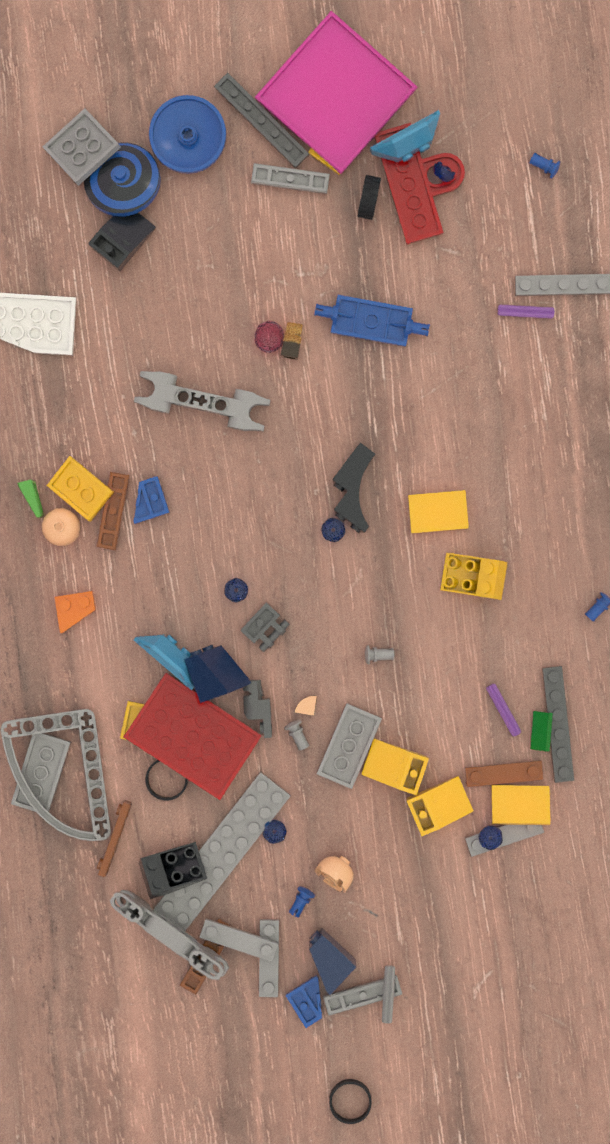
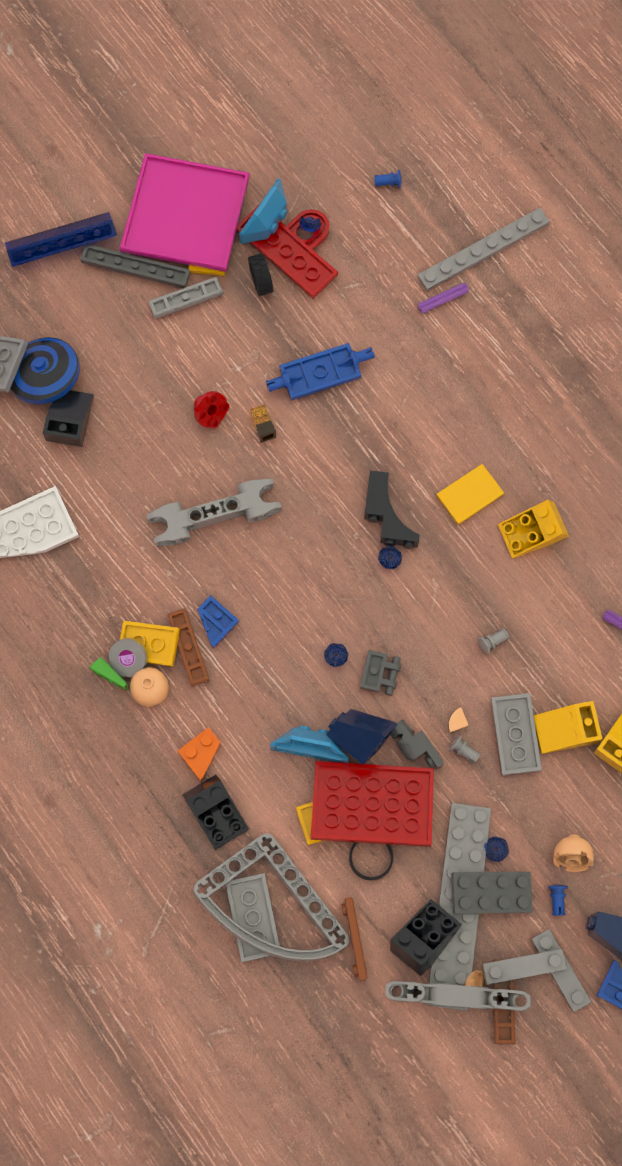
camera: 30 degrees left, 15 degrees down
(55, 492) = (127, 657): none -> light grey tile
(57, 666) = (215, 811): none -> black slope
(187, 134) = (79, 306): blue dish -> none
(193, 927) = (475, 979): none -> light nougat tile
(206, 55) = (60, 239): none -> clear blue brick
(248, 865) = (491, 892): none -> dark grey plate
(251, 302) = (210, 409): none -> red plate
(269, 336) = (241, 429): clear pink hair -> none

